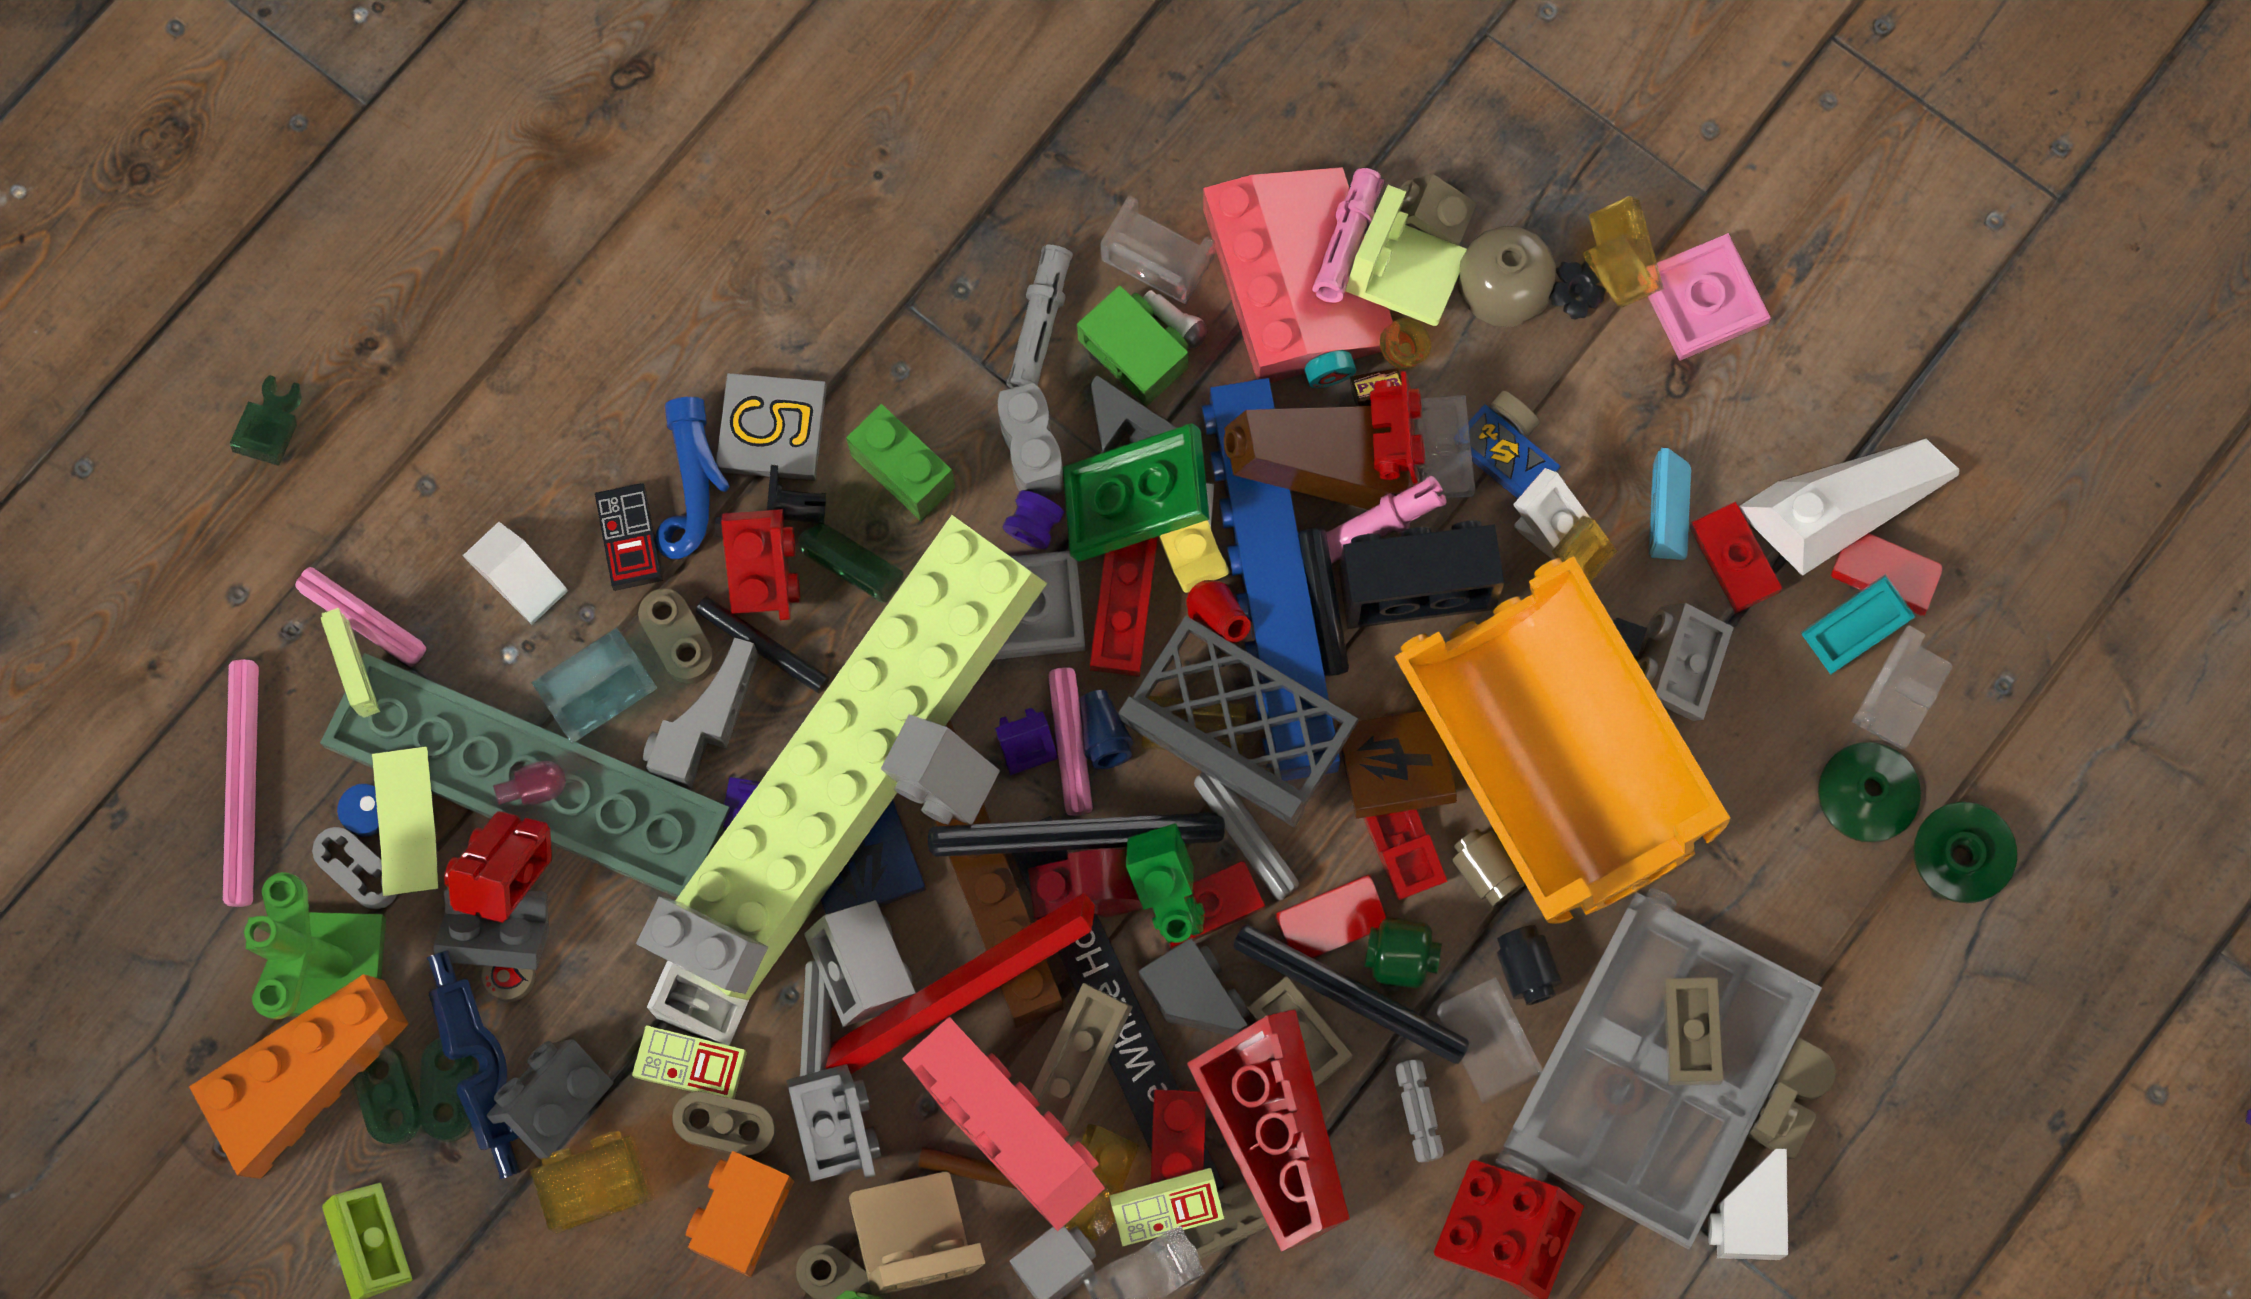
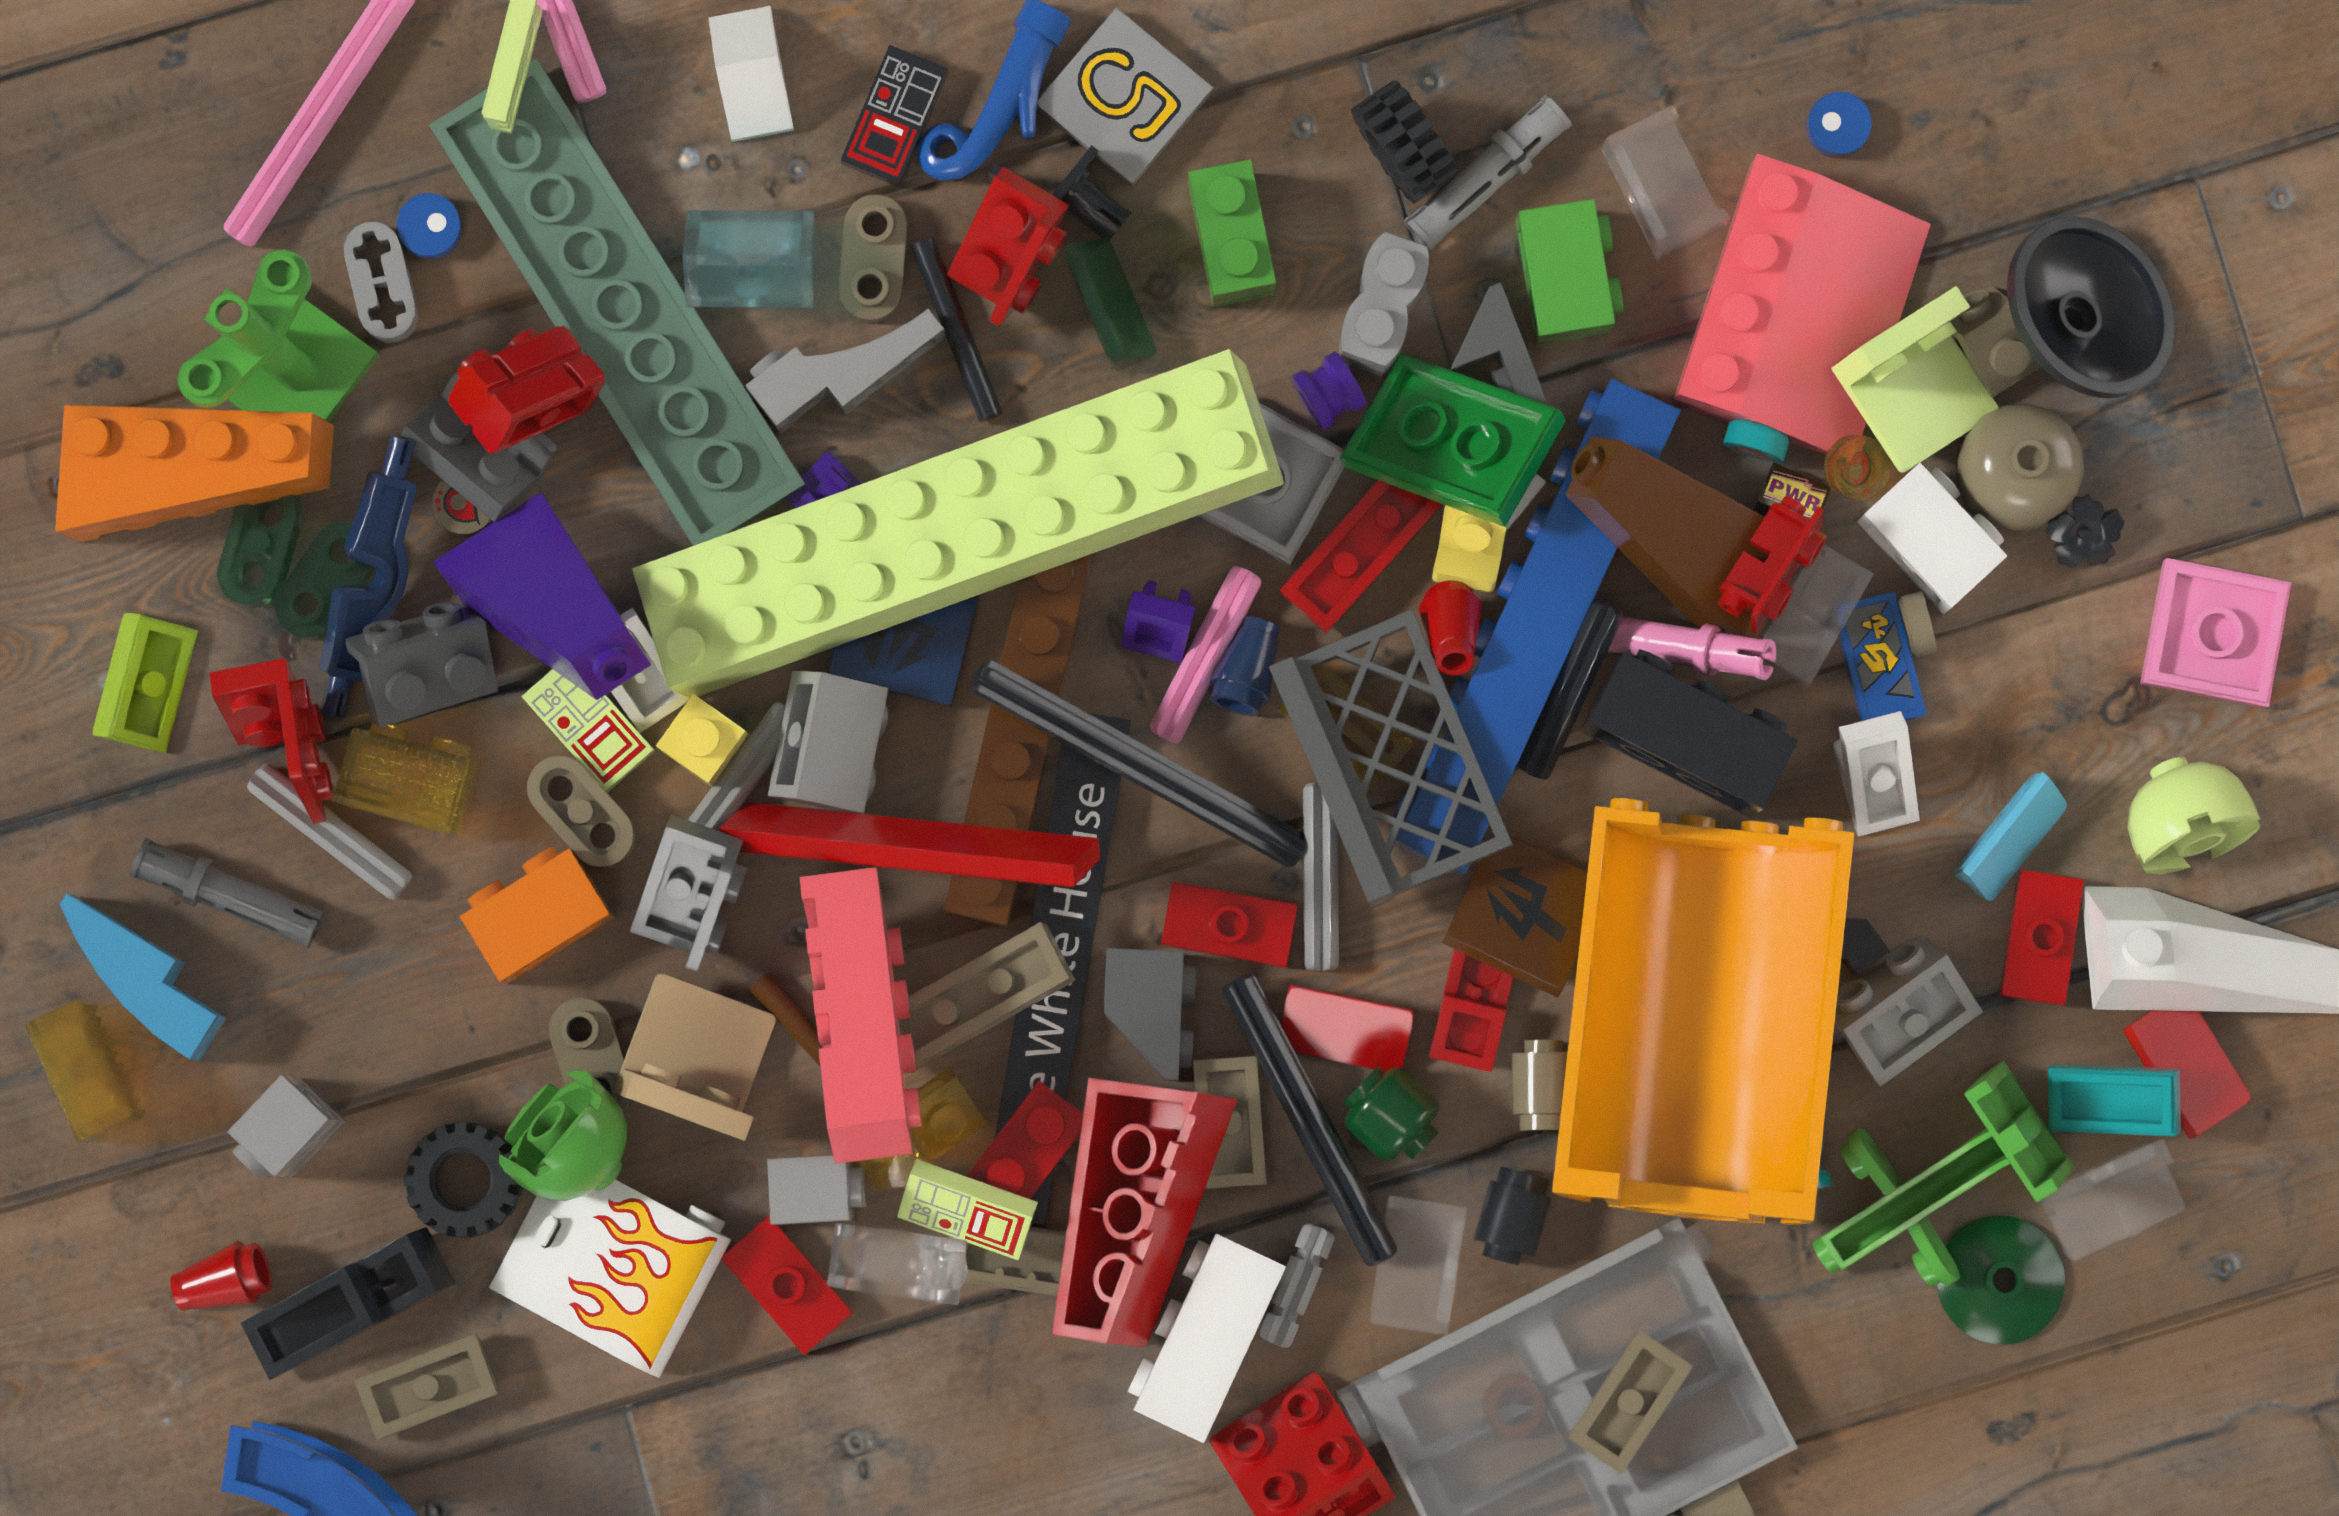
camera: 30 degrees right, 10 degrees up
(405, 821) = (463, 270): yellowish green sticker -> none
(464, 1192) = (269, 705): none -> red bracket
(533, 784) = (617, 323): clear pink cylinder -> none
(560, 1255) = (333, 835): none -> light grey axle
(604, 992) = (544, 596): none -> dark purple slope
(702, 945) = (672, 623): light grey brick -> none
(774, 1020) = (702, 740): none -> light yellow brick
(939, 770) = (1033, 610): light grey brick -> none
(972, 330) = (1404, 141): none -> black tyre
(1096, 872) = (1129, 825): dark red brick -> none
(1164, 881) = (1193, 873): green brick -> none
(1189, 326) = (1638, 290): white piece -> none
(1241, 145) = (1838, 124): none -> blue tile
(1352, 223) = (1896, 296): bright pink pin -> none
(1384, 1184) = (1206, 1336): none -> white brick
(1480, 146) = (2091, 307): none -> black dish
(1484, 353) = (1934, 536): none -> white brick
(1587, 545) = (1884, 823): clear yellow tile -> none
(1623, 252) = (2160, 534): clear yellow slope -> none
(1771, 413) = (2188, 813): none -> yellowish green cylinder
(1776, 780) = (2012, 1136): none -> bright green piece
(1985, 839) = (2082, 1417): dark green dish -> none

